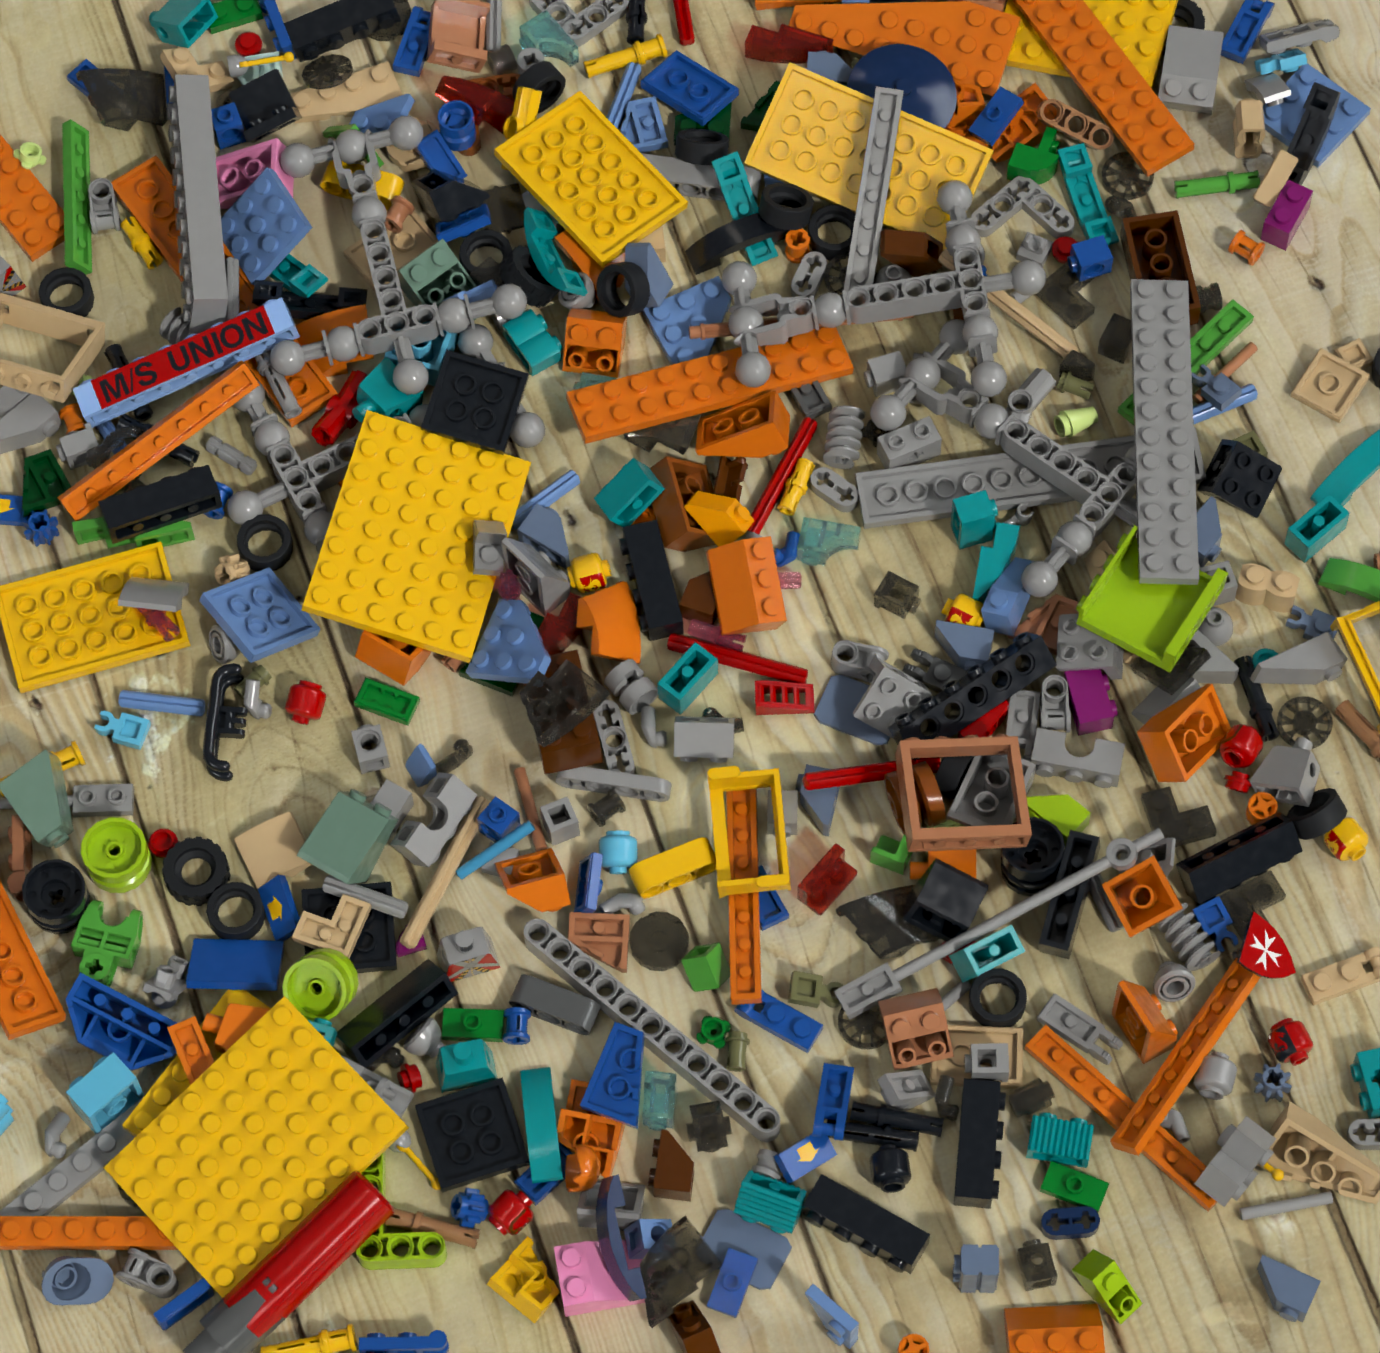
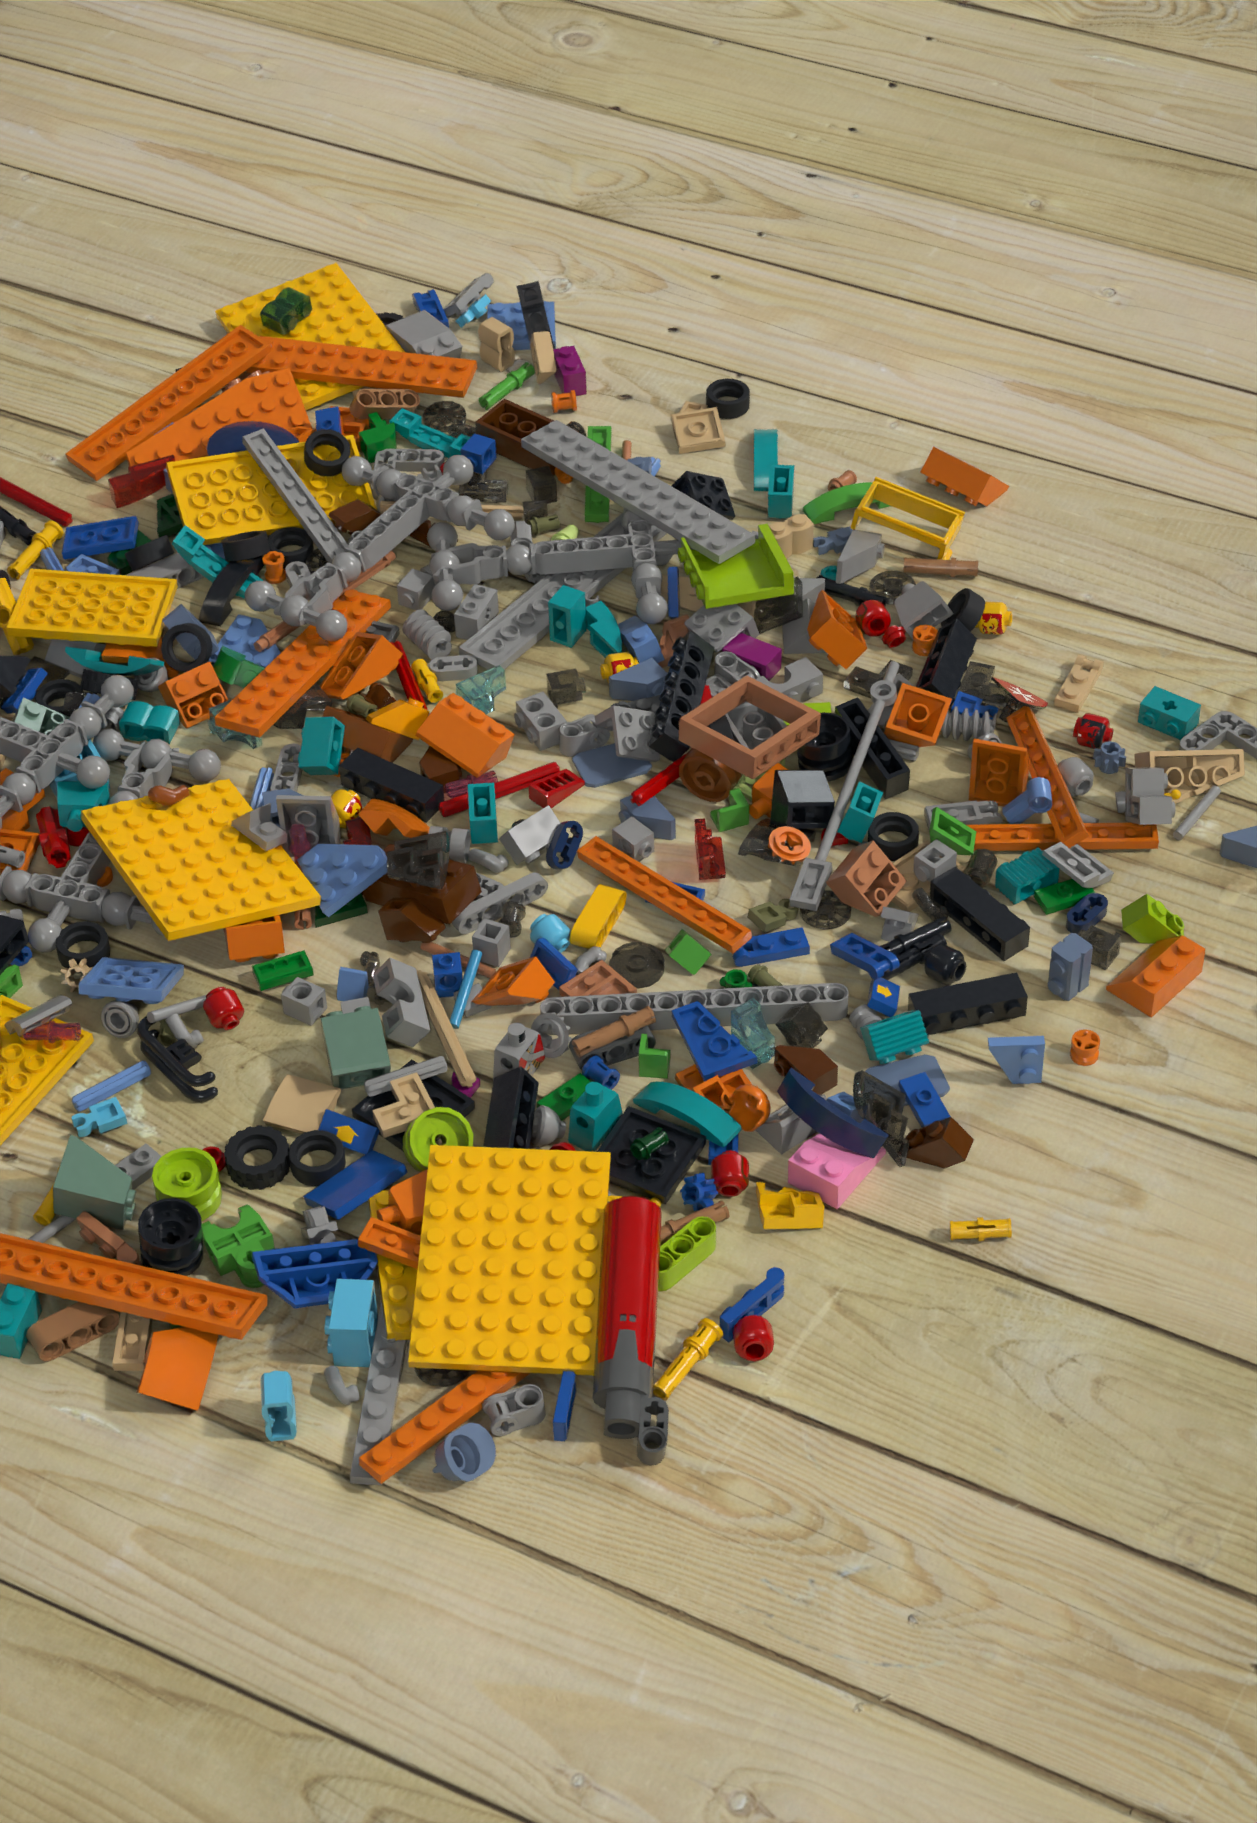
camera: 45 degrees left, 20 degrees down
(268, 675) = (179, 1008): none -> light grey bar
(446, 452) = (167, 796): none -> dark orange arm
(472, 1131) = (644, 1147): none -> dark green pin
(475, 402) = (153, 759): black plate -> none
(512, 955) = (547, 1022): none -> light grey gear
(518, 743) = (409, 921): none -> reddish brown slope
(558, 1002) = (623, 1027): none -> medium nougat pin
(570, 1048) = (653, 1062): none -> bright green panel
(587, 505) = (285, 765): none -> light grey beam
(643, 341) = (234, 669): none -> green brick
(706, 472) = (357, 705): none -> olive pin
(715, 761) = (565, 845): none -> dark blue beam
(731, 779) = (613, 814): yellow piece -> none
(843, 616) = (539, 720): none -> light grey brick
(899, 936) = (795, 839): none -> orange gear
(944, 135) = (331, 438): none -> black tyre
(1030, 1047) = (952, 832): none -> bright green slope
(1088, 570) = (673, 593): none -> blue tile
(1106, 1173) = (1079, 865): none -> light grey slope
(1137, 1072) = (1034, 800): none -> medium blue piece
(1268, 88) = (473, 327): light grey slope -> none

